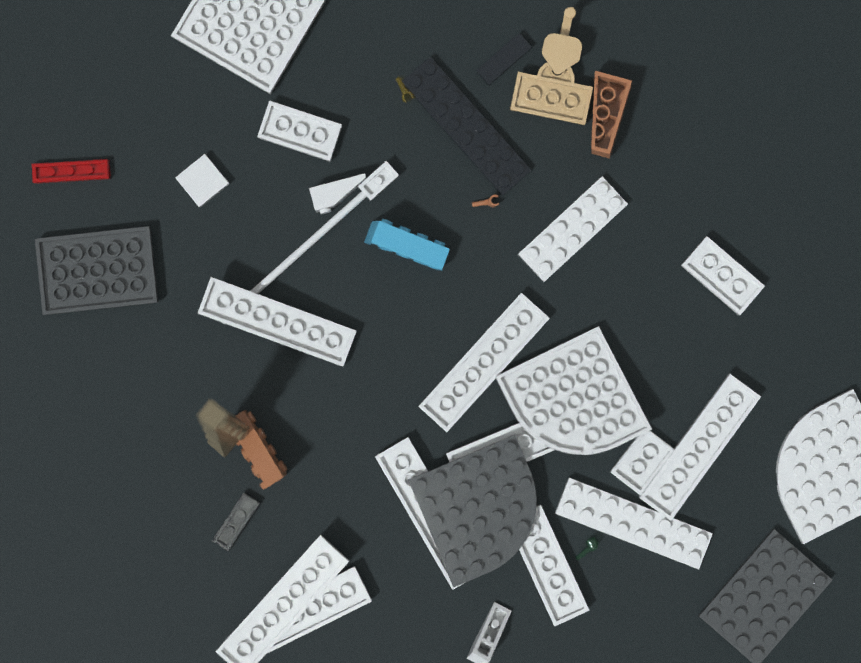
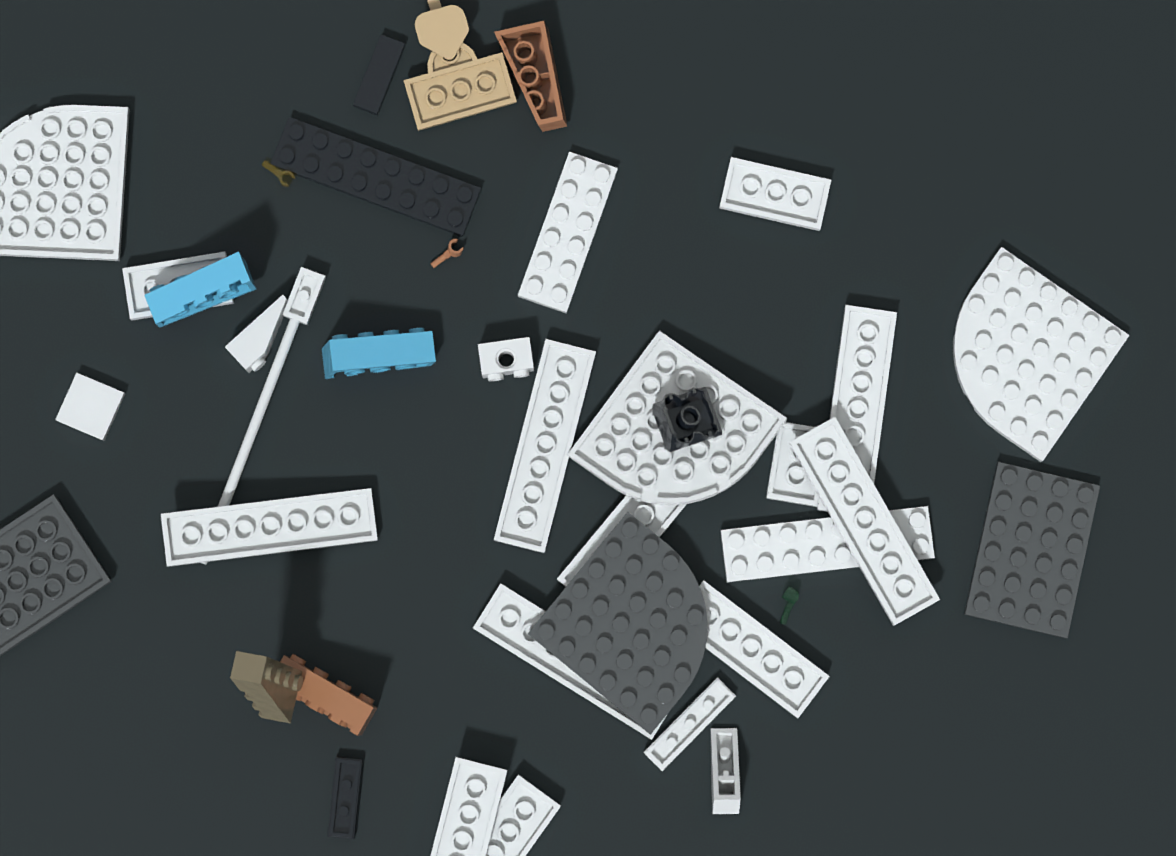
camera: 30 degrees left, 5 degrees down
(312, 142) = (200, 290): none -> medium azure wedge
(482, 592) = (689, 724): none -> white tile
(500, 291) = (491, 352): none -> white brick
(585, 395) = (686, 419): none -> black slope
(666, 523) = (864, 521): none -> white plate

